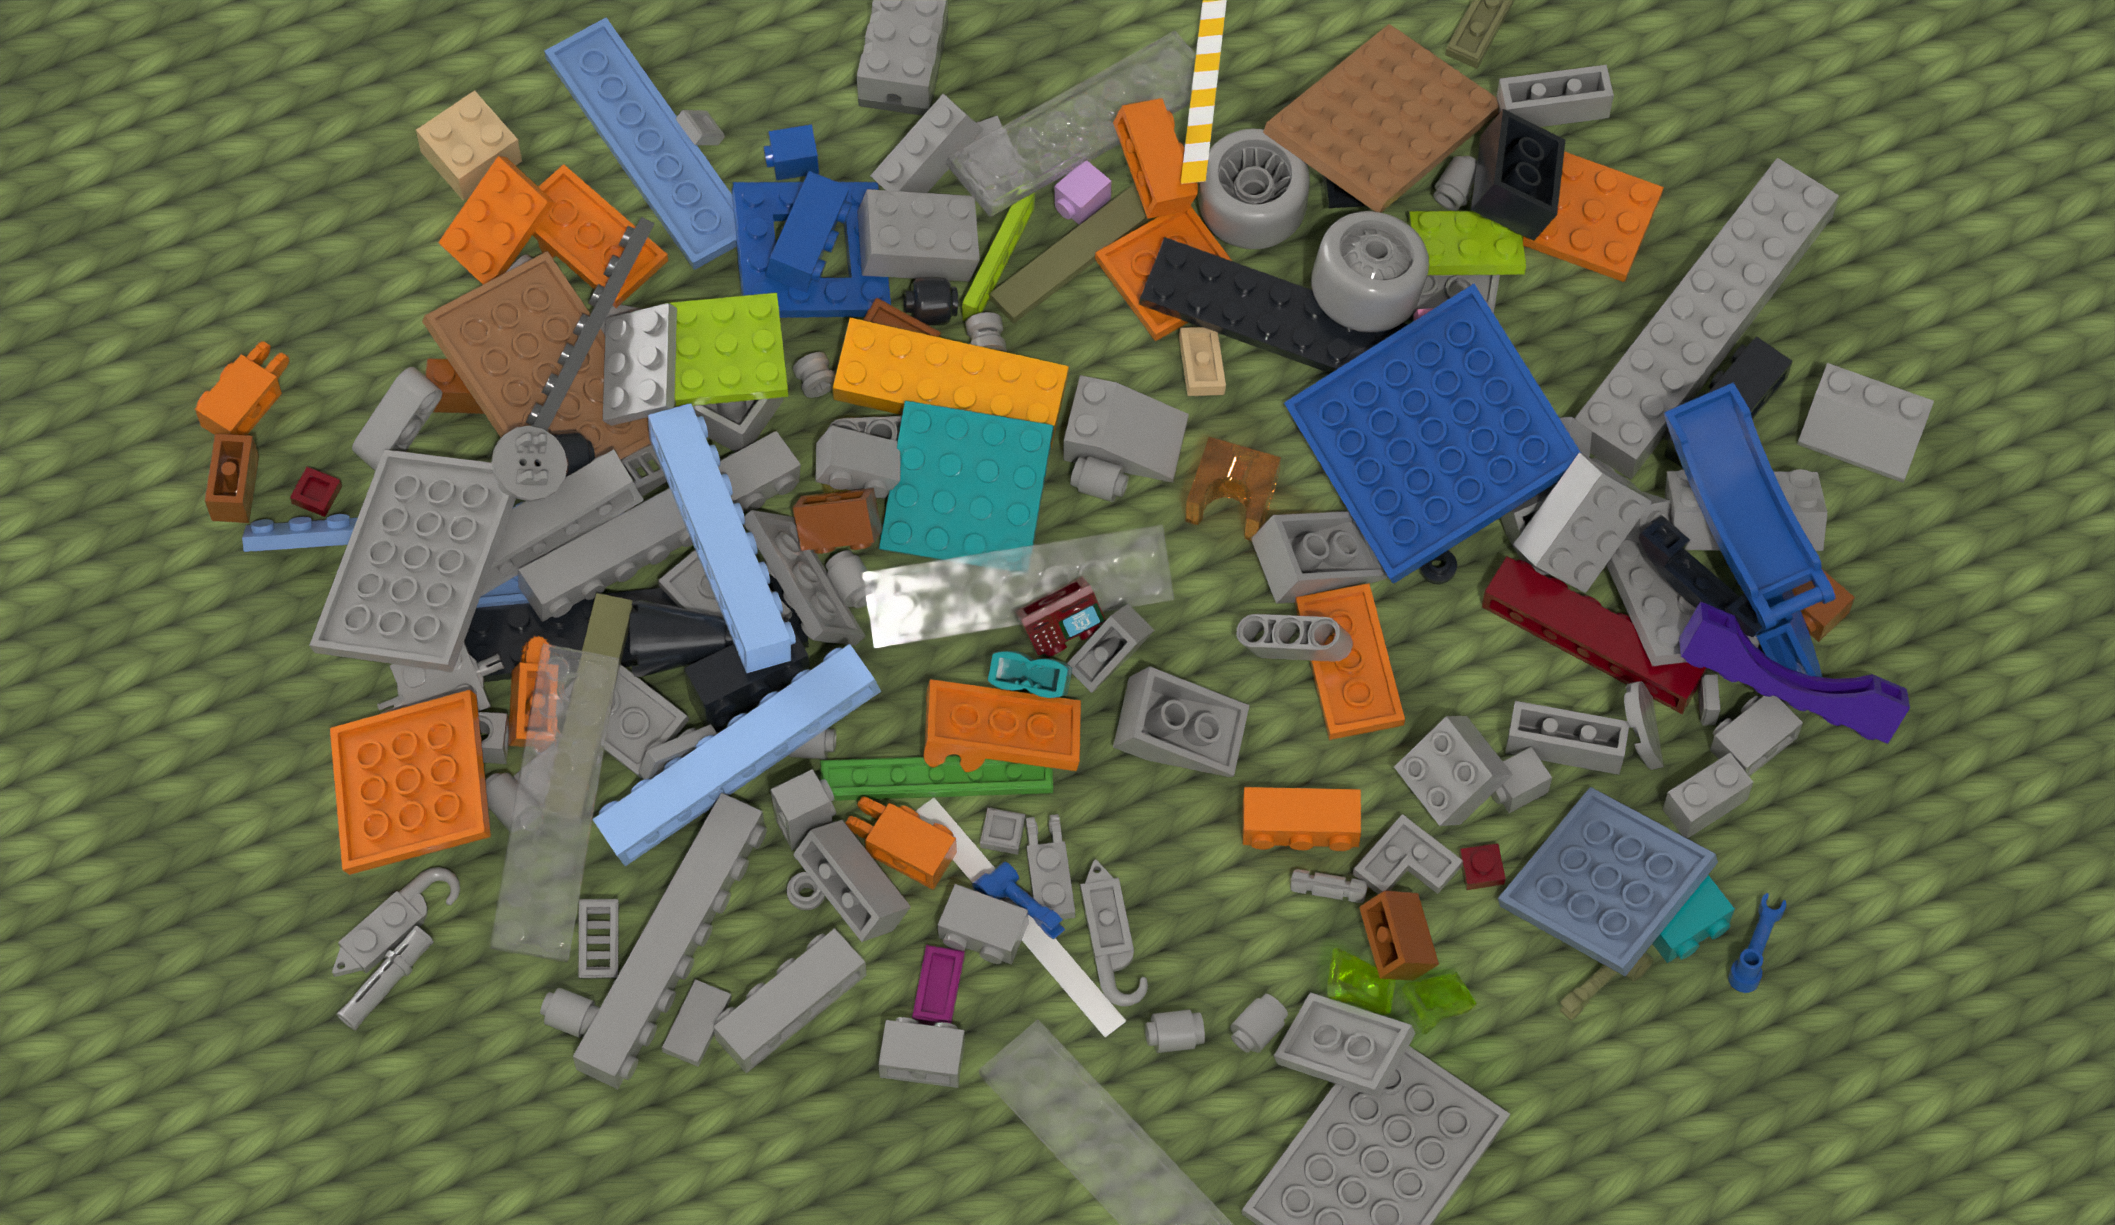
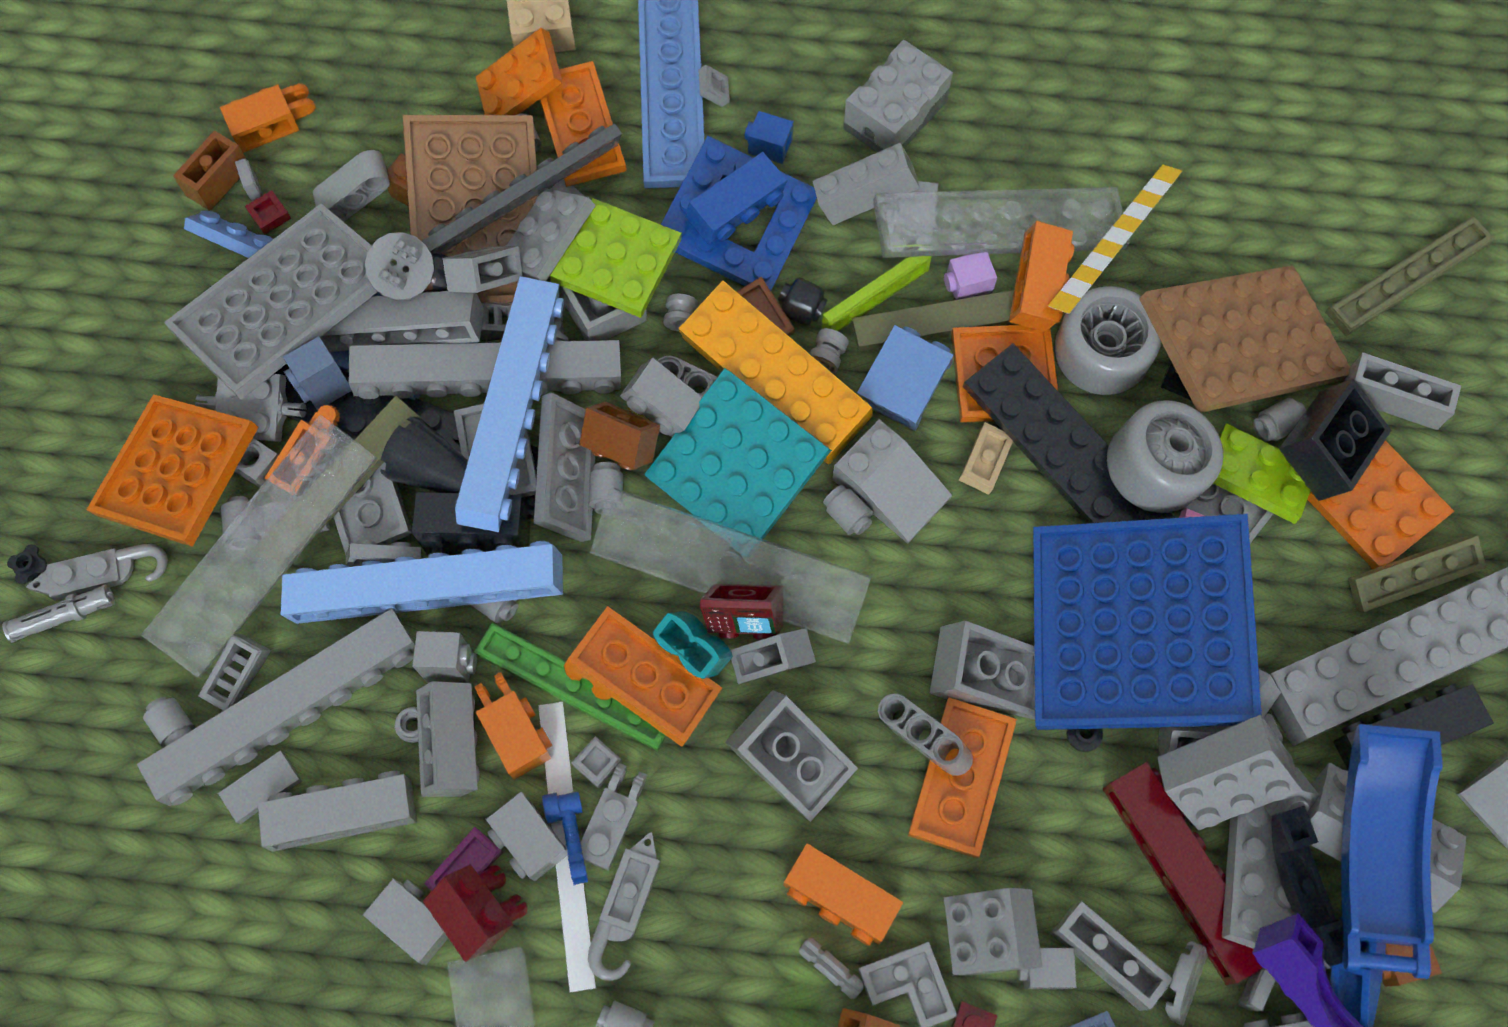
camera: 30 degrees right, 5 degrees up
(274, 469) = (249, 179): none -> light grey tile
(322, 962) = (35, 566): none -> black plate
(502, 613) = (315, 374): none -> sand blue brick
(610, 425) = (482, 269): none -> light grey brick
(918, 235) = (822, 244): light grey brick -> none
(977, 1005) = (470, 912): none -> dark red brick
(1079, 322) = (905, 376): none -> medium blue panel
(1238, 474) = (960, 565): clear orange piece -> none
(1659, 262) = (1417, 573): none -> olive plate

